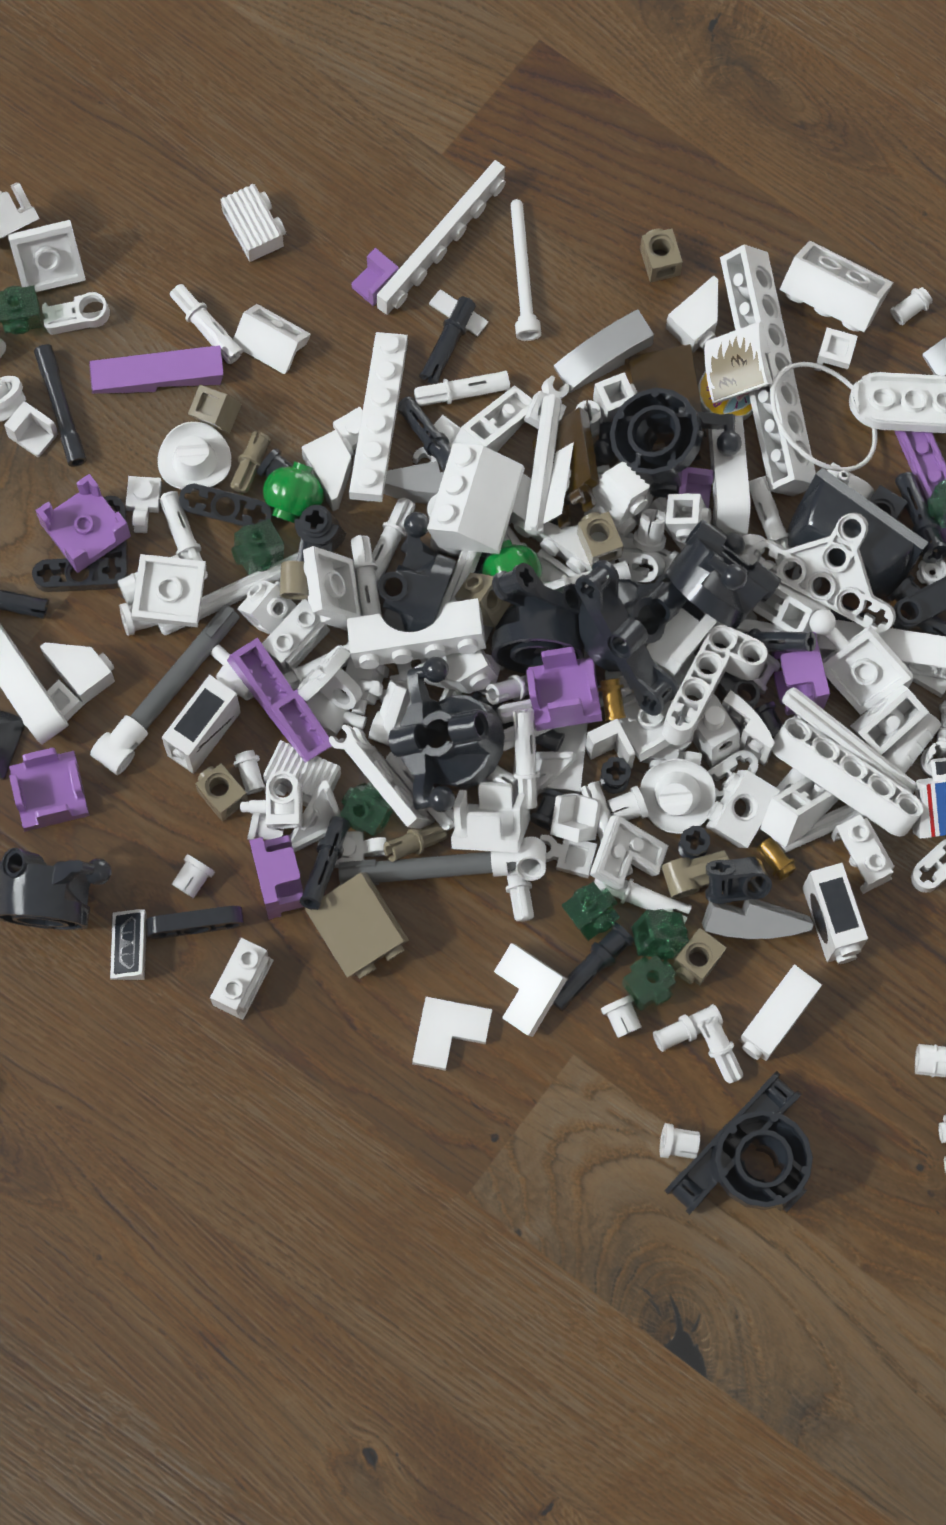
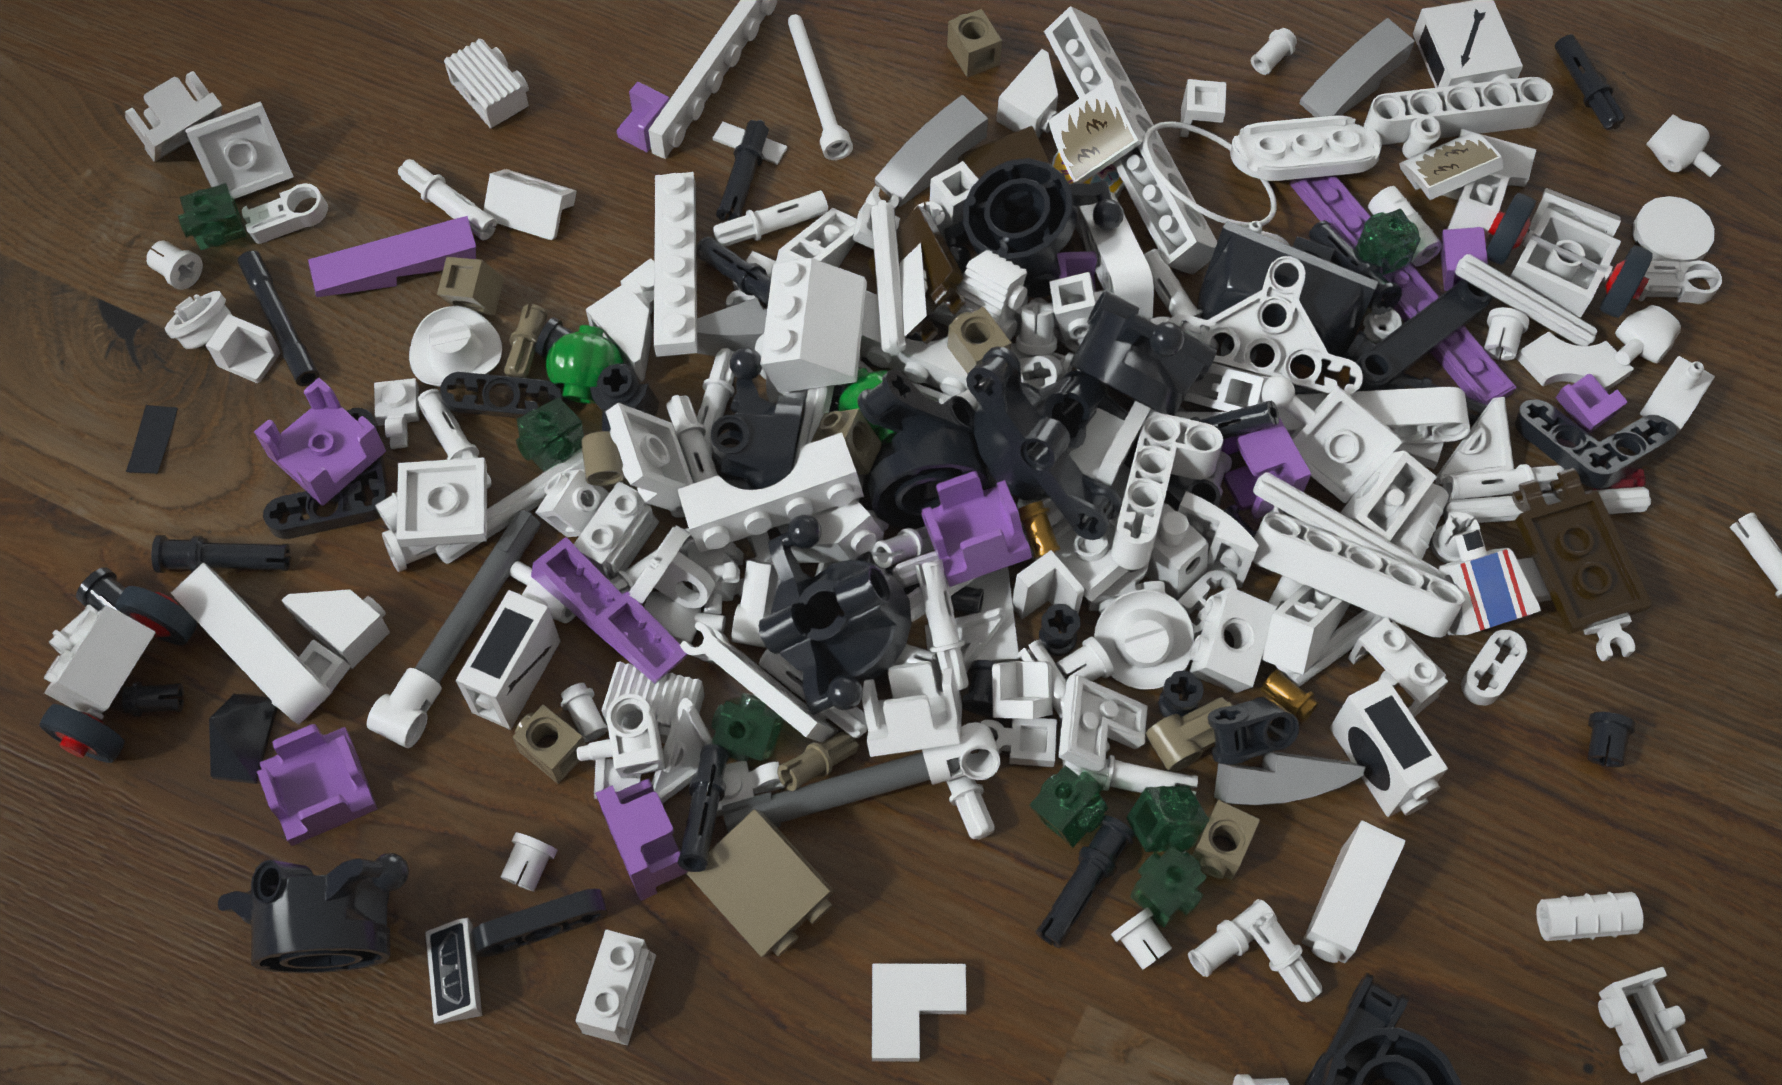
camera: 10 degrees left, 10 degrees down
(536, 984) = (1021, 922): white tile -> none
(835, 286) = (1181, 45): white slope -> none

